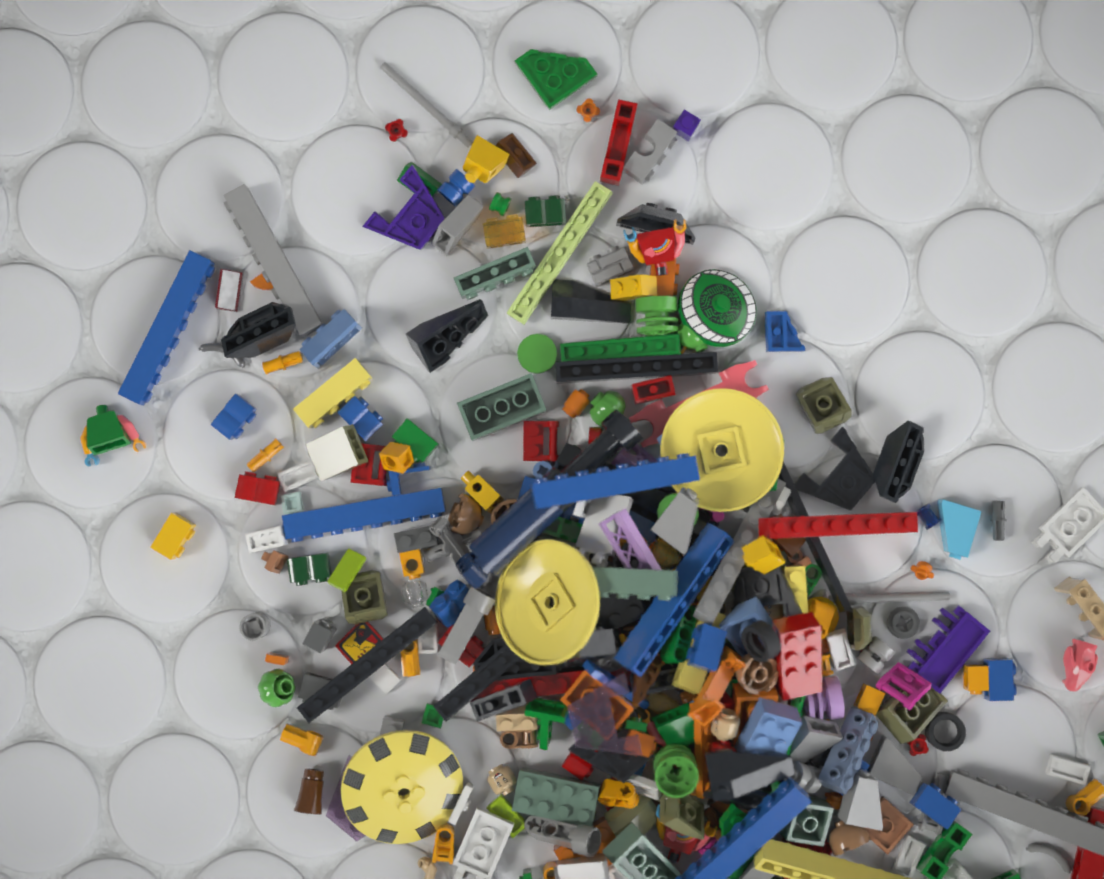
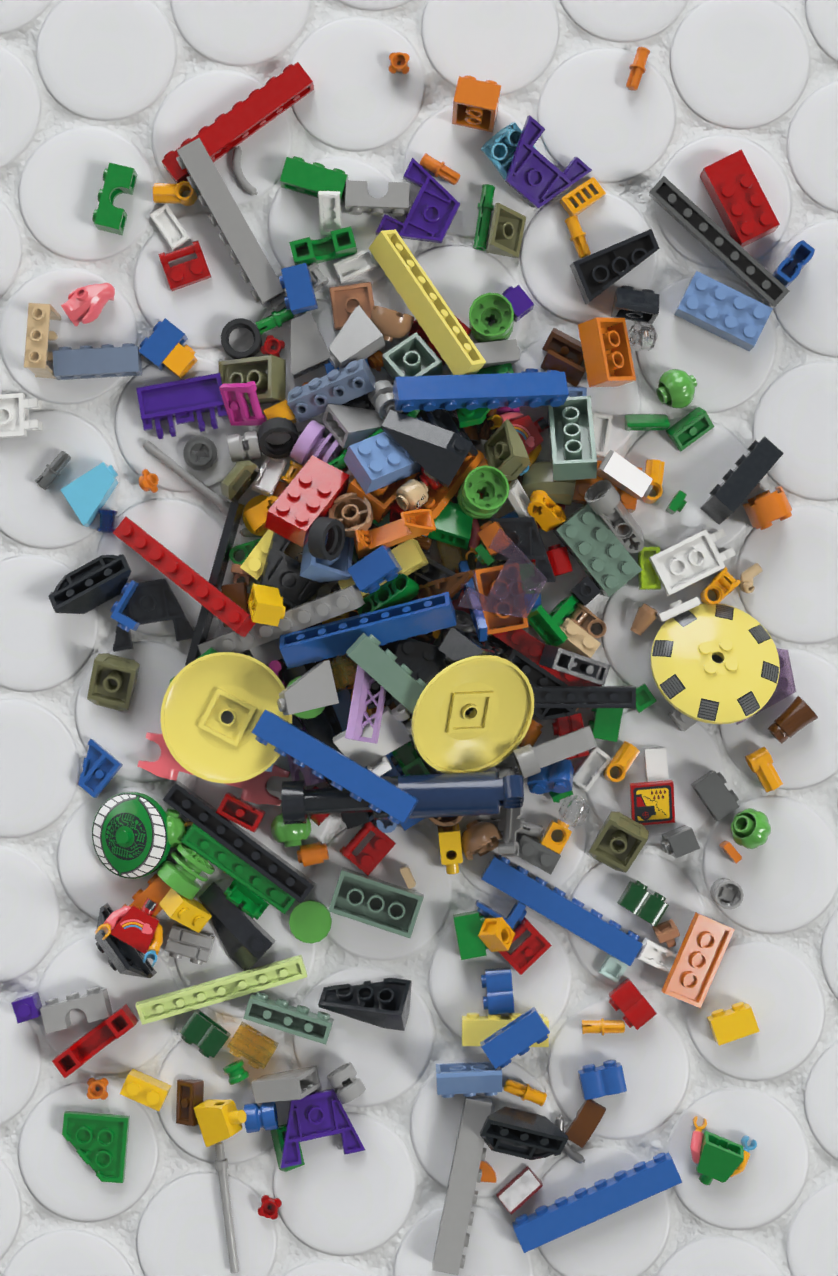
camera: 145 degrees left, 0 degrees up
(221, 377) = (585, 1122): none -> reddish brown slope
(236, 560) = (697, 960): none -> plate
(297, 475) = (588, 986): white tile -> none
(321, 395) = (515, 1038): none -> blue brick
(336, 452) = (542, 980): brick -> none
(346, 570) = (614, 875): lime tile -> none
(367, 665) = (661, 785): black tile -> none
(408, 261) = (350, 1089): none -> light grey wheel
(444, 676) = (606, 723): none -> green brick
(479, 774) = (644, 618): none -> medium nougat cone
(494, 444) = (408, 877): none -> tan tile
(502, 780) = (629, 600): tan head -> none
(540, 759) = (585, 591): none -> black brick
(553, 138) = (145, 1089): none -> yellow brick
(603, 331) = (253, 904): none -> green hinge
(781, 501) = (214, 634): white tile -> none
(866, 461) = (125, 622): none -> blue bracket
(867, 689) = (277, 425): none -> black tyre
(933, 766) = (274, 320): none -> green pin
(1026, 747) = (187, 272): none -> red plate
(1034, 625) = (97, 362): none -> sand blue brick

